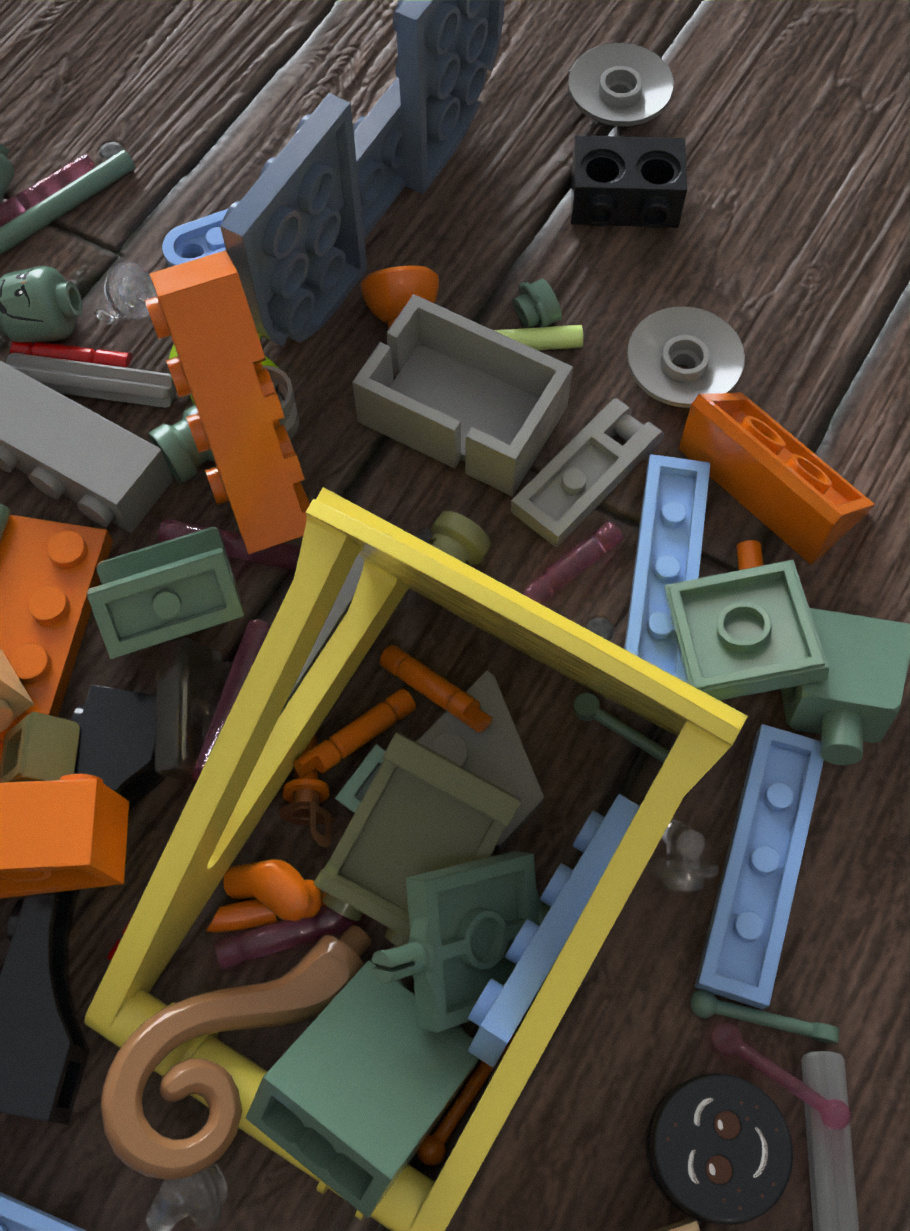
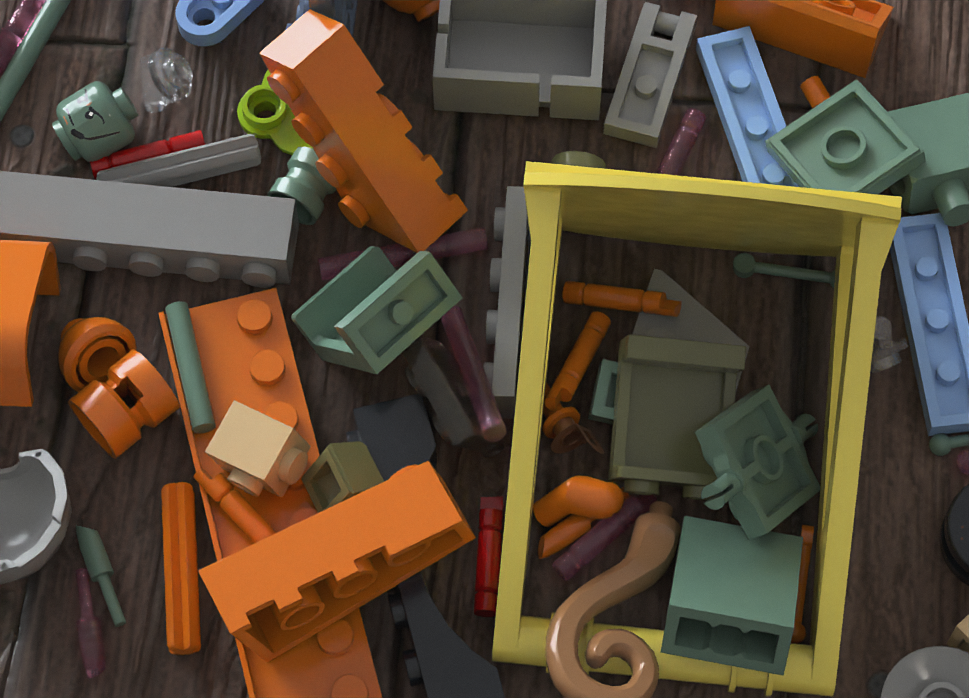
camera: 25 degrees left, 0 degrees up
(536, 946) = (811, 442): light blue plate -> none

